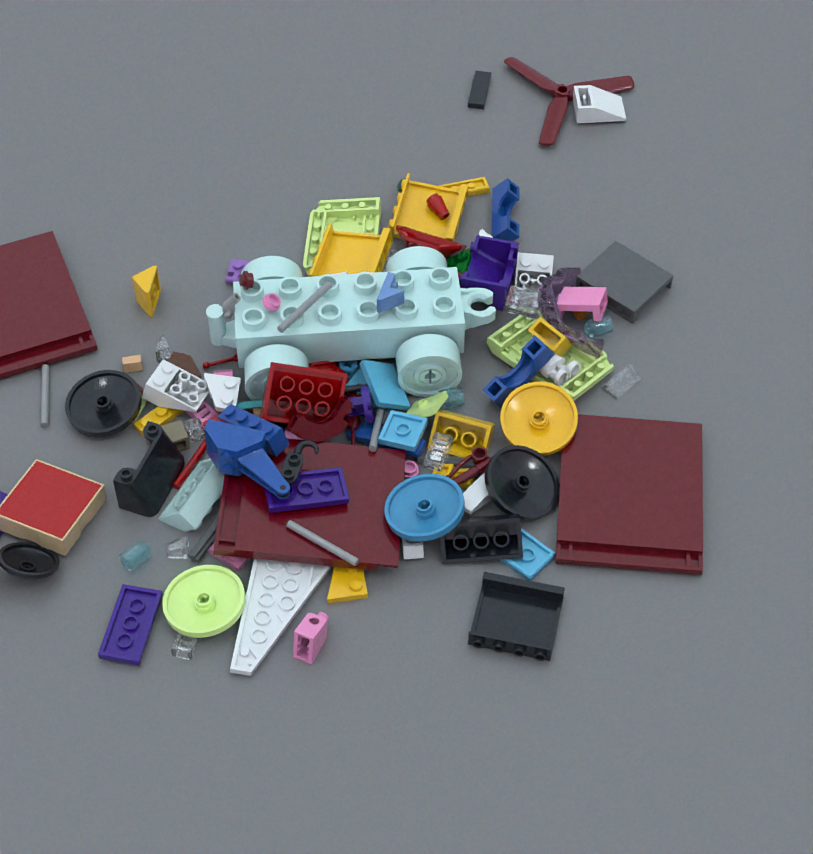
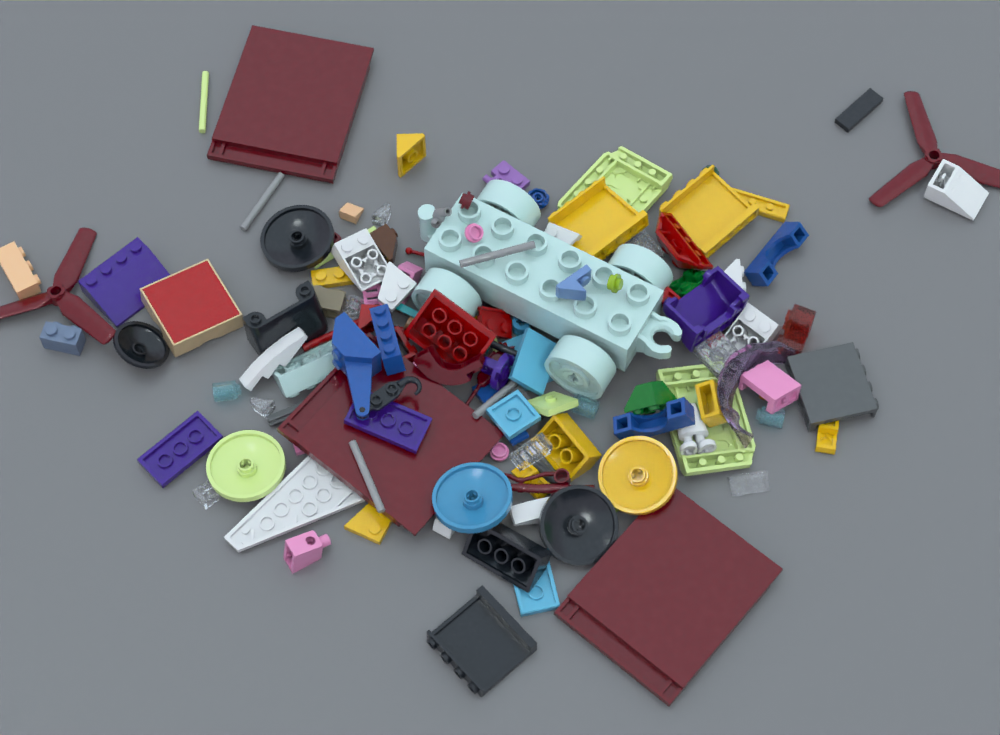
camera: 35 degrees right, 10 degrees up
(157, 508) = (278, 353): none -> white slope
(419, 276) = (615, 283): none -> lime plate
(437, 205) = (718, 211): red cone -> none
(501, 357) = (648, 398): none -> green slope
(566, 250) = (797, 327): none -> clear red brick
(650, 319) = (827, 437): none -> yellow slope

